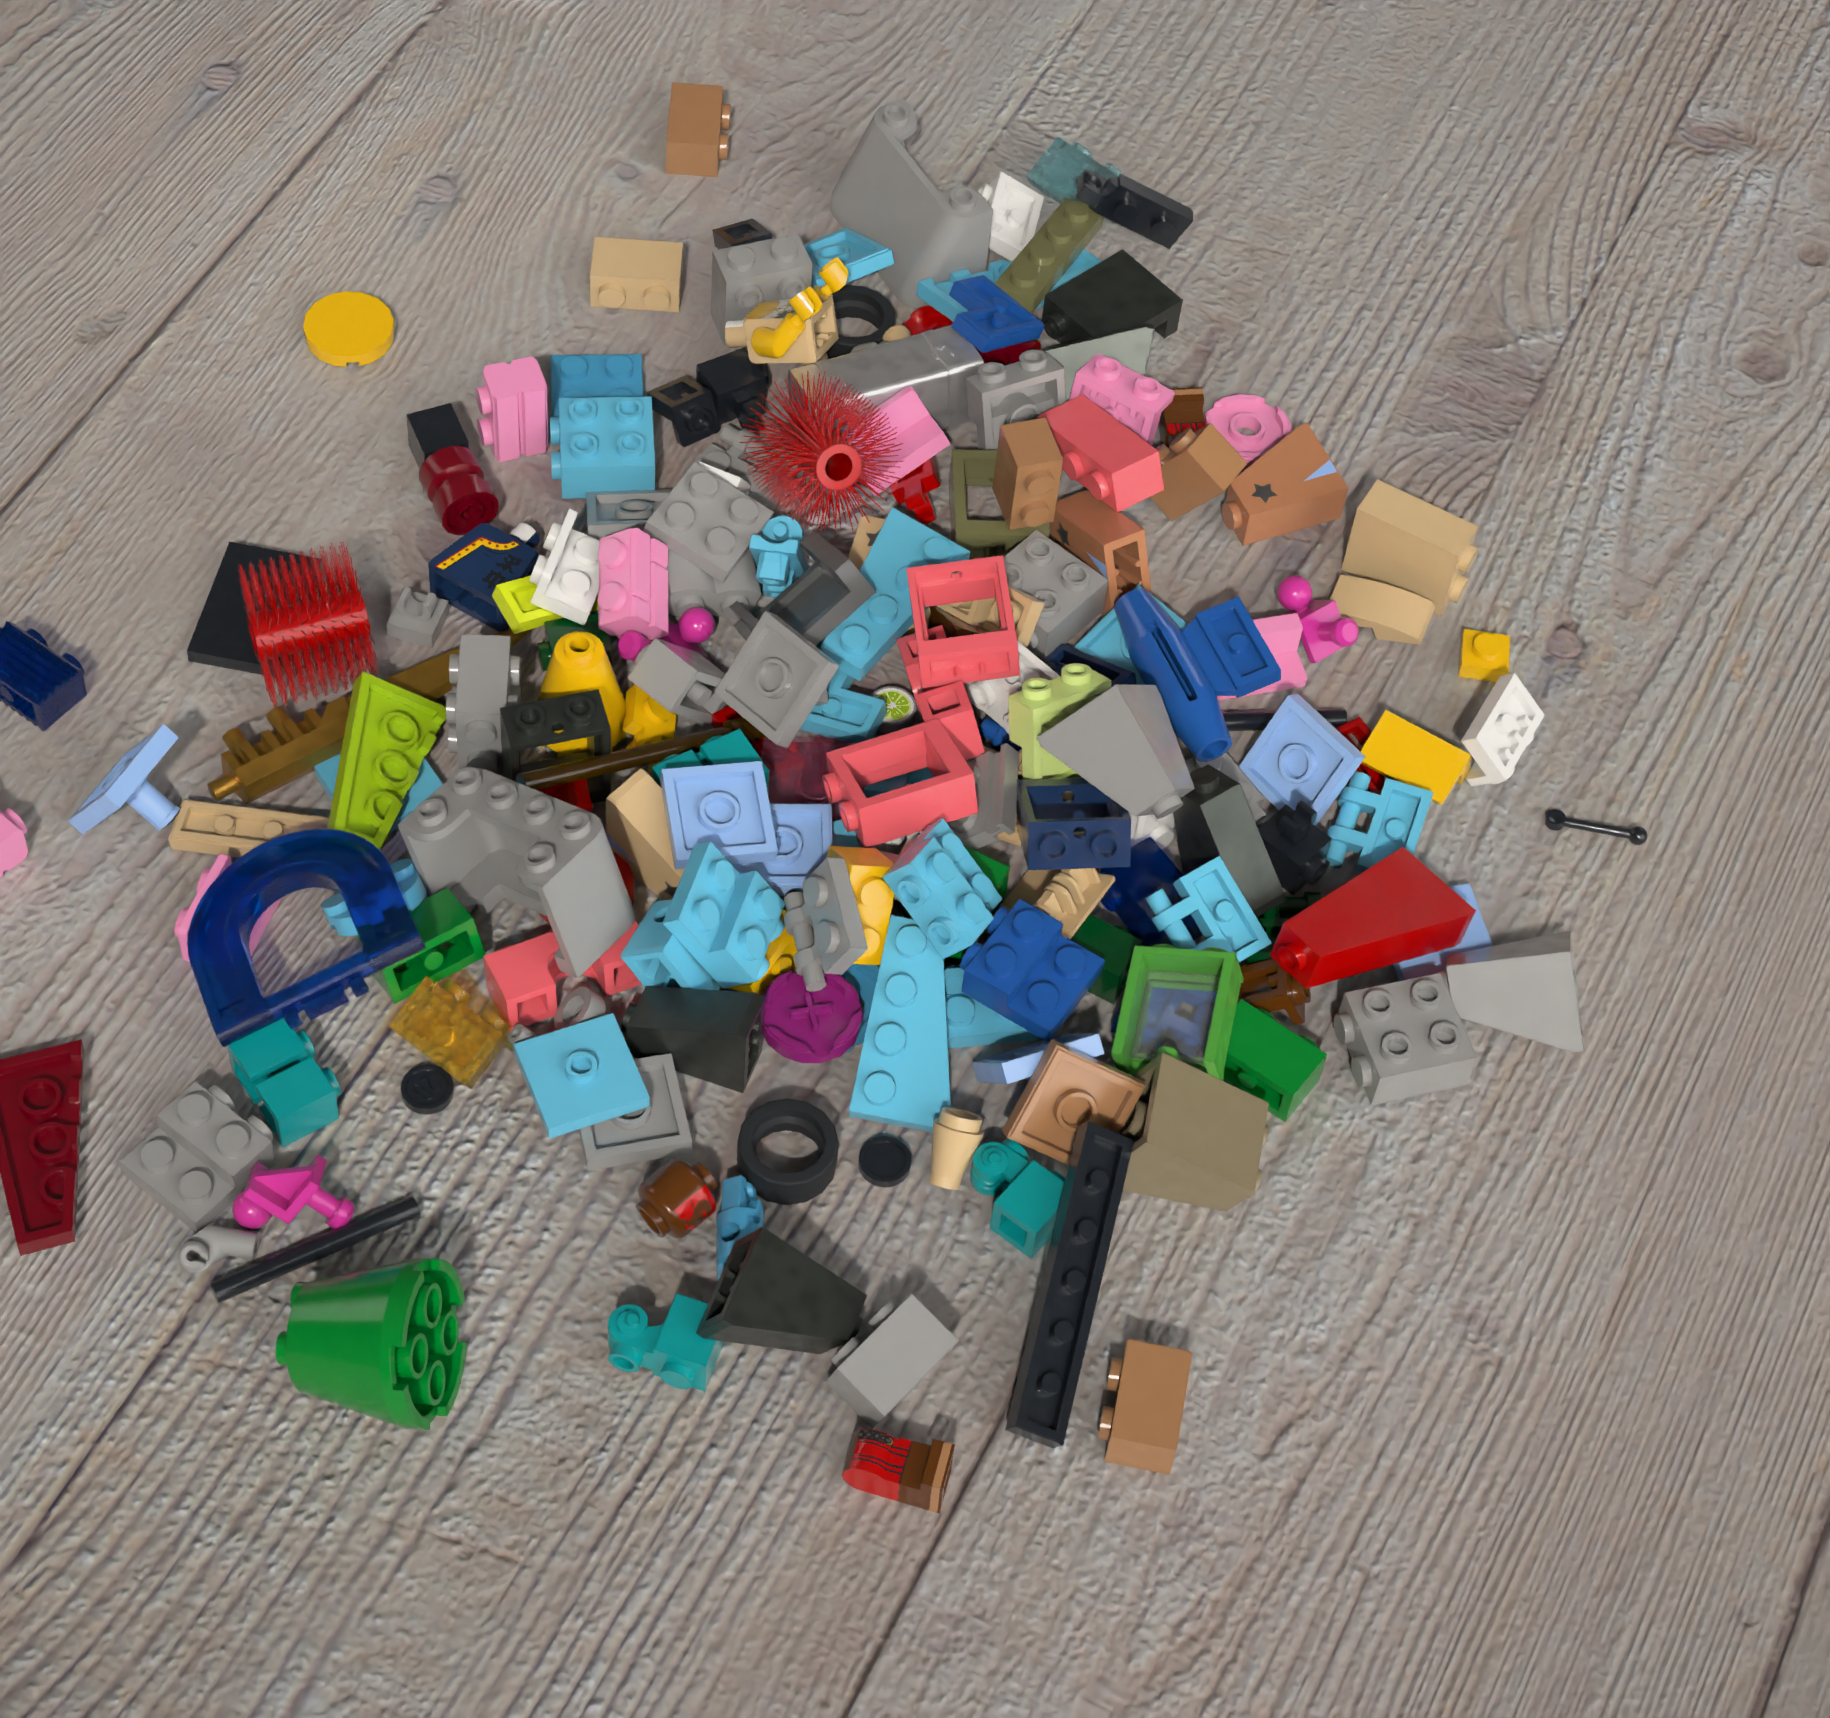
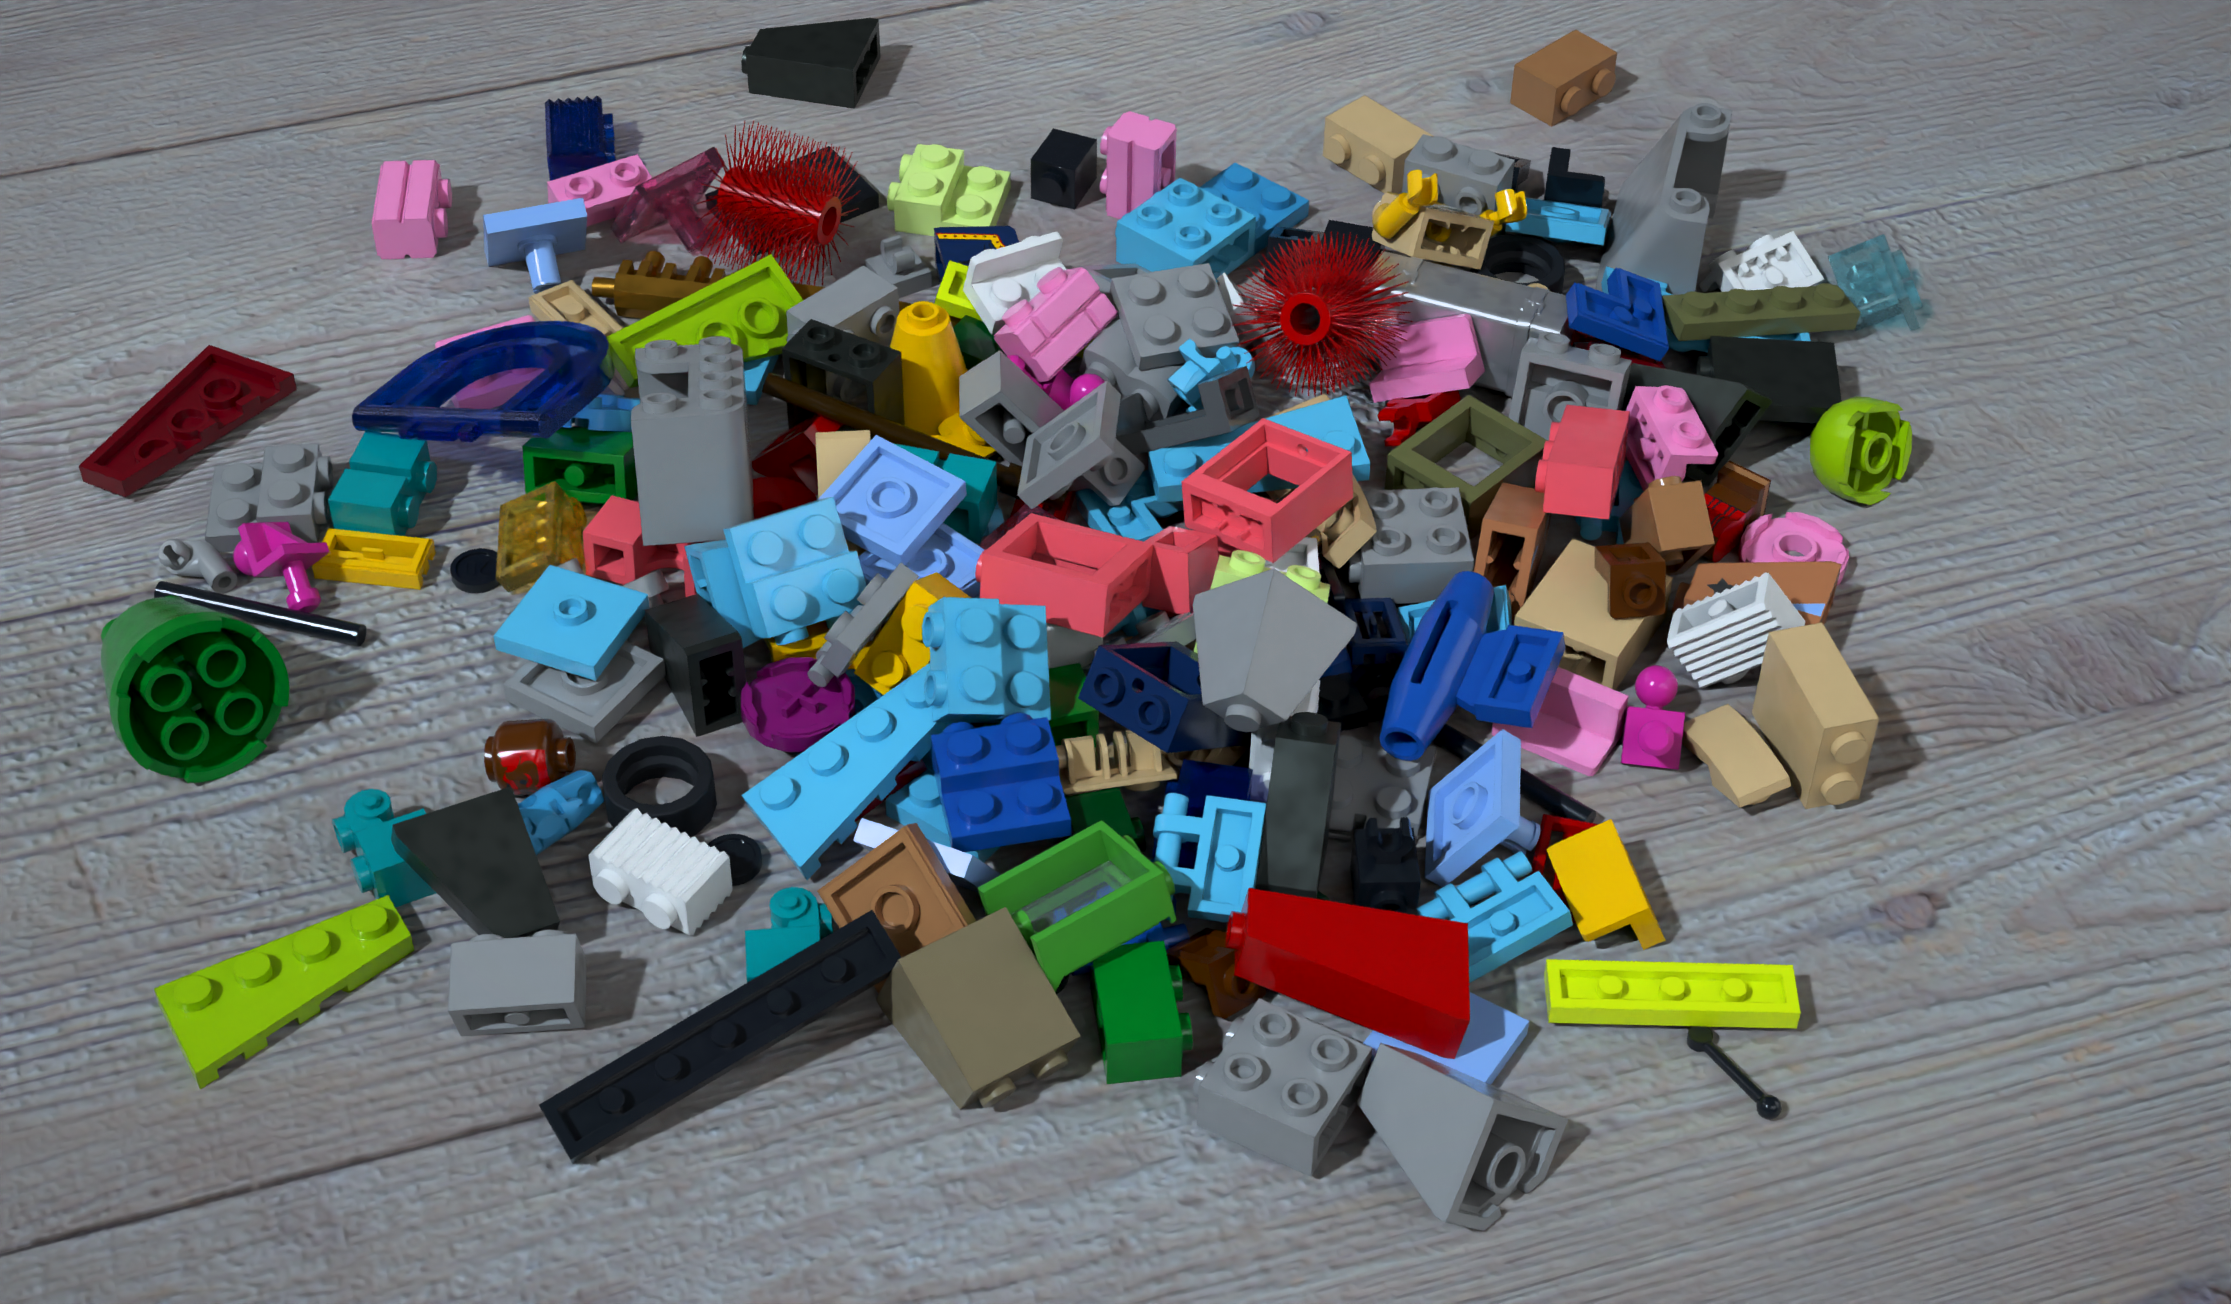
camera: 50 degrees right, 10 degrees down
(123, 472) = (814, 61): none -> pearl dark grey slope
(124, 709) = (601, 187): none -> bright pink bracket
(188, 675) = (671, 198): none -> clear pink tile
(347, 1145) = (375, 559): none -> yellow tile
(348, 328) = (1107, 68): yellow tile -> none
(377, 524) = (945, 193): none -> yellowish green plate
(458, 489) = (1034, 199): dark red wheel -> none
(714, 1511) = (255, 993): none -> lime wing
(810, 225) = (1572, 186): none -> black panel
(868, 1208) = (660, 872): none -> white brick
(899, 1468) = (425, 1069): leg -> none
(953, 1145) = (784, 864): tan cone -> none
(1027, 473) = (1480, 426): medium nougat brick -> none
(1135, 206) = (1888, 318): black hinge -> none
(1147, 1406) = (671, 1185): medium nougat brick -> none
(1198, 561) = (1575, 602): none -> tan brick
(1212, 324) = (1860, 448): none -> lime cylinder
(1218, 518) = (1633, 578): none -> reddish brown bracket
(1307, 518) = (1730, 630): none -> white brick
(1483, 655) = (1802, 862): yellow plate -> none
(1501, 731) = (1715, 912): white bracket -> none
(1519, 803) = (1671, 994): none -> neon yellow plate

